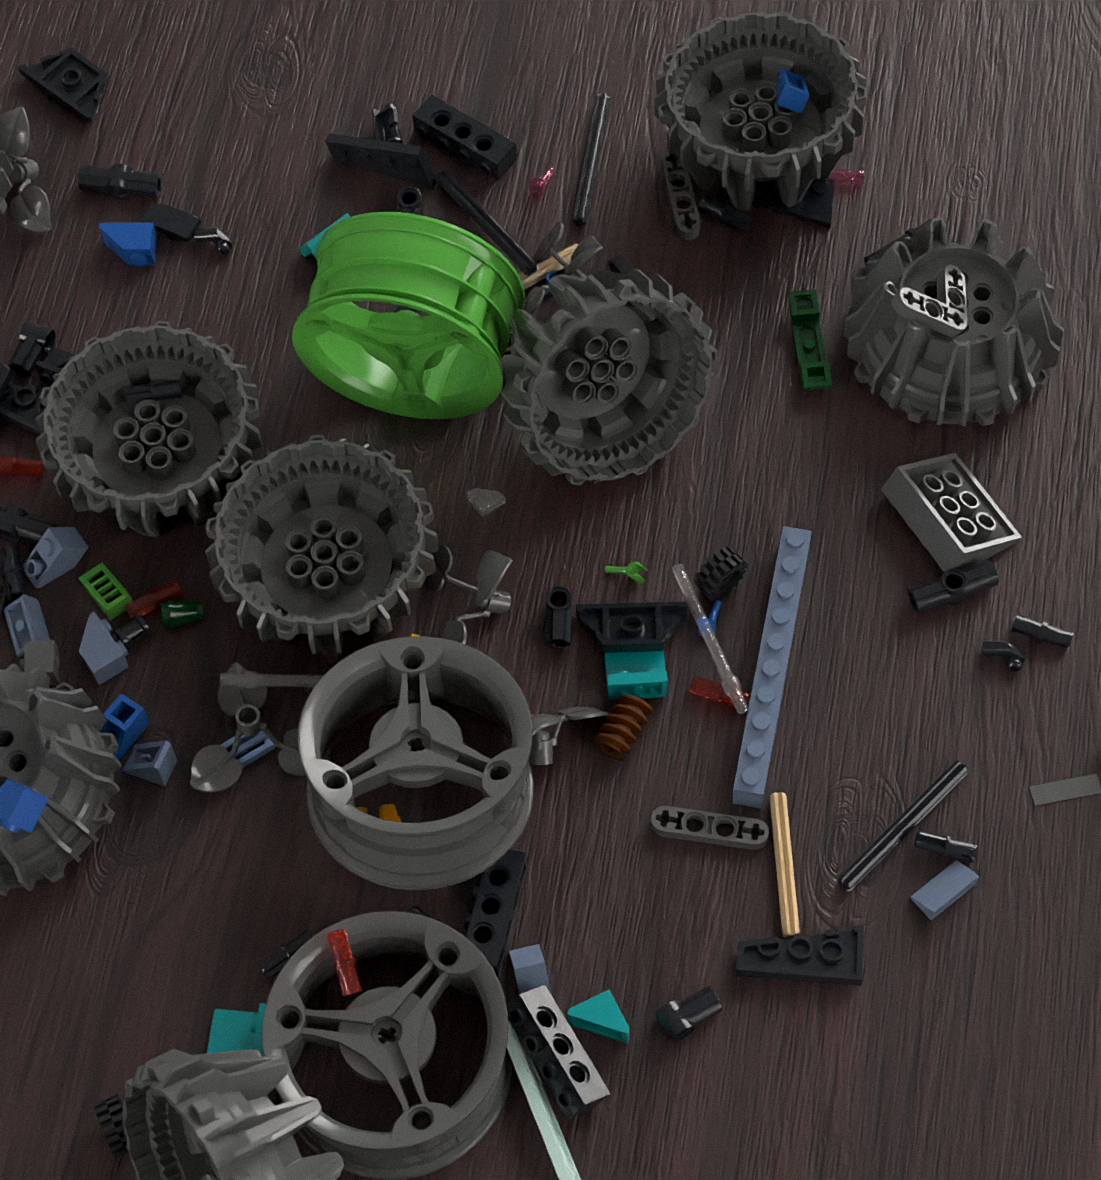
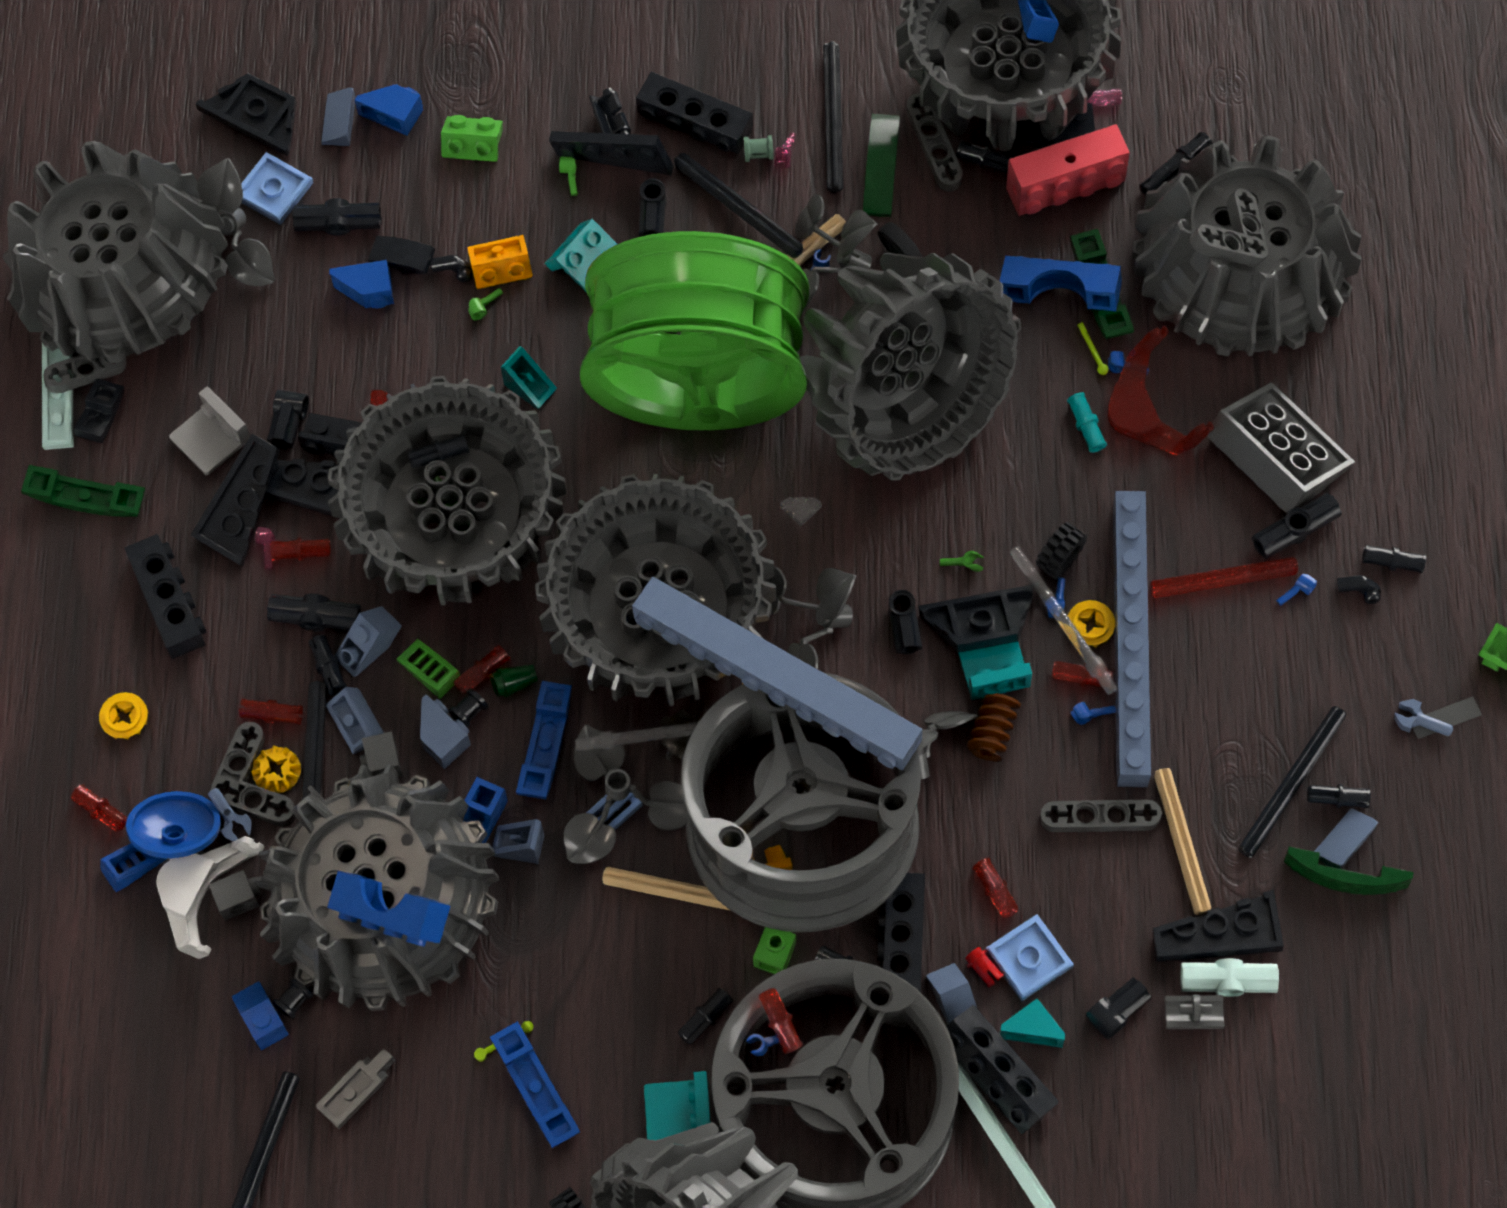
camera: 10 degrees left, 5 degrees up
(68, 954) = (481, 1054): none -> lime hinge
(70, 149) = (274, 188): none -> light blue tile
(110, 991) = (534, 1085): none -> blue slope
(144, 98) = (339, 118): none -> sand blue slope
(192, 94) = (391, 107): none -> blue slope
(198, 673) = (545, 740): none -> blue slope
(228, 277) = (477, 305): none -> bright green hand
(256, 345) = (526, 378): none -> teal slope
(257, 131) = (471, 138): none -> bright green bracket
(257, 241) = (500, 262): none -> light orange bracket
(272, 825) = (660, 887): none -> tan axle
(326, 984) = (766, 1042): none -> blue hand
(339, 167) = (568, 165): none -> bright green hand
(367, 898) = (774, 950): none -> bright green brick
(413, 635) = (777, 674): none -> sand blue brick
(516, 176) = (758, 148): none -> sand green bush
(565, 951) = (982, 965): none -> red pin
(593, 879) = (995, 888): none -> clear red axle
(612, 951) = (1029, 957): none -> light blue tile
(625, 207) = (881, 165): none -> dark green slope
(712, 730) = (1083, 715): none -> blue hand
(732, 636) = (1103, 618): none -> yellow gear
(740, 323) = (1095, 283): none -> blue arch
(761, 1029) = (1194, 1012): none -> dark grey hips
(771, 462) = (1087, 422): none -> teal pin
(796, 416) = (1102, 368): none -> lime hinge
(797, 233) = (1067, 170): none -> coral brick
(803, 1002) = (1229, 977): none -> light aqua piece
(811, 415) = (1117, 361): none -> blue hand
(816, 458) = (1133, 412): none -> clear red piece
(875, 624) = (1224, 577): none -> clear red axle
(950, 641) = (1304, 583): none -> blue hand
(979, 936) = (1306, 864): none -> dark green slope
(1039, 786) = (1420, 719): none -> sand blue bar

